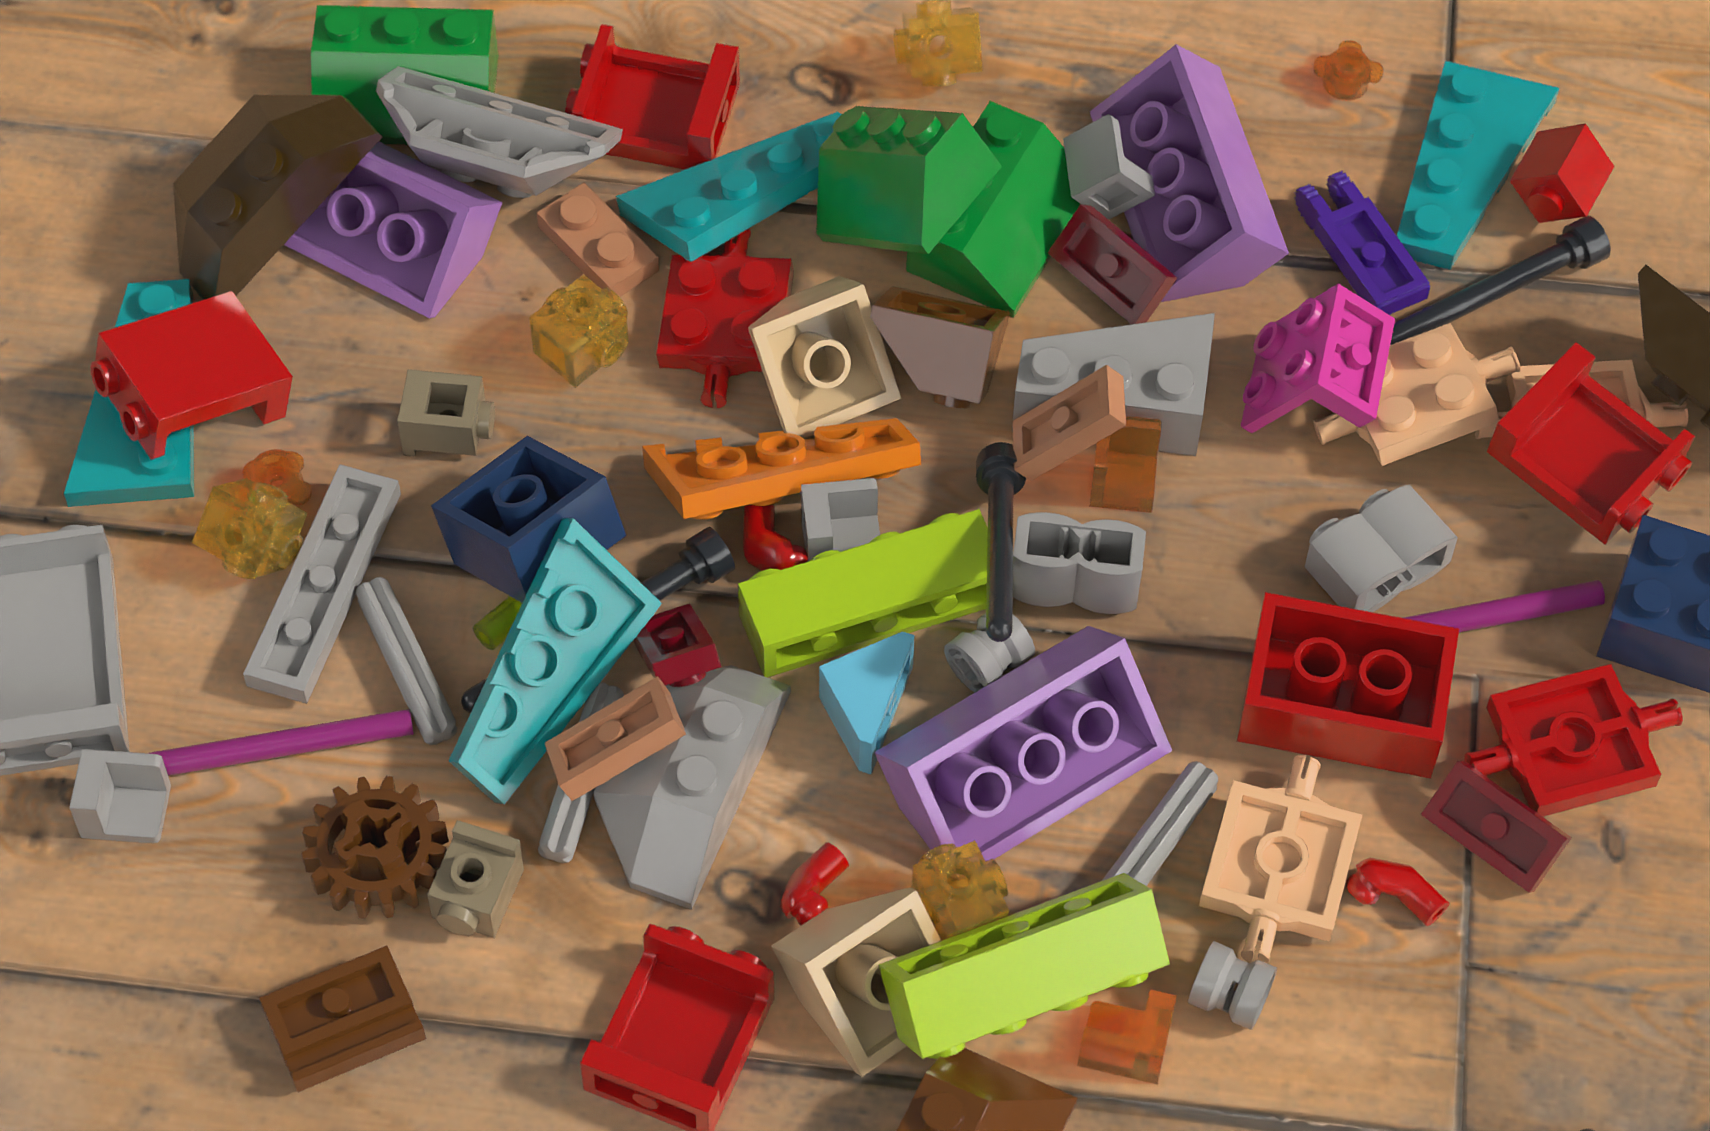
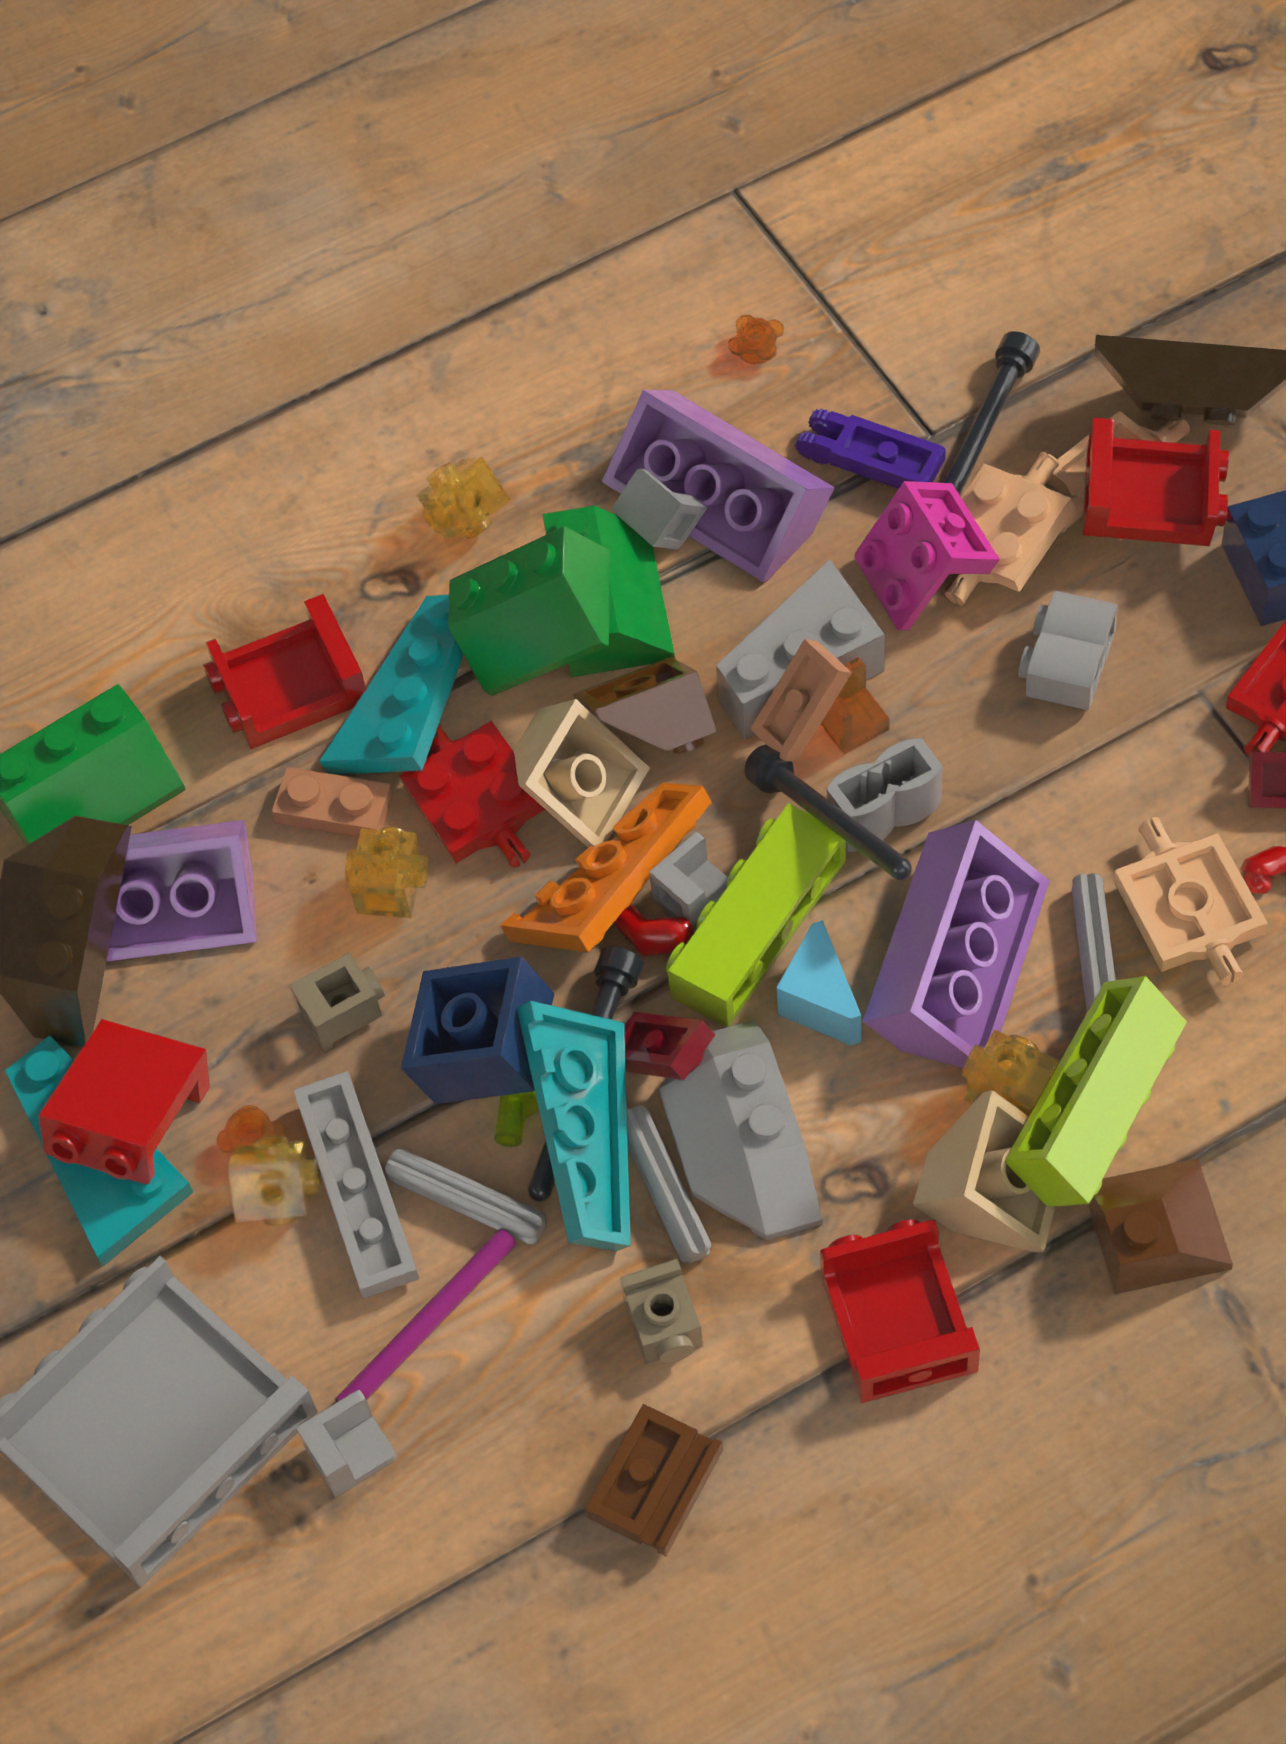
camera: 30 degrees left, 0 degrees up
(356, 867) = (553, 1322): reddish brown gear -> none
(489, 134) = (197, 775): light grey wedge -> none
(614, 738) = (683, 1138): nougat plate -> none
(803, 888) = (891, 1145): red arm -> none
(981, 660) = (873, 900): light grey wheel -> none
(1112, 265) = (718, 576): dark red plate -> none
(1128, 1039) = (1200, 1093): clear orange panel -> none
(1217, 980) = (1235, 1007): light grey wheel -> none
(1349, 685) = (1135, 752): red brick -> none
(1466, 156) = (885, 346): teal wing -> none
(1518, 607) = (1166, 651): magenta bar -> none
(1562, 173) = (966, 315): red brick -> none

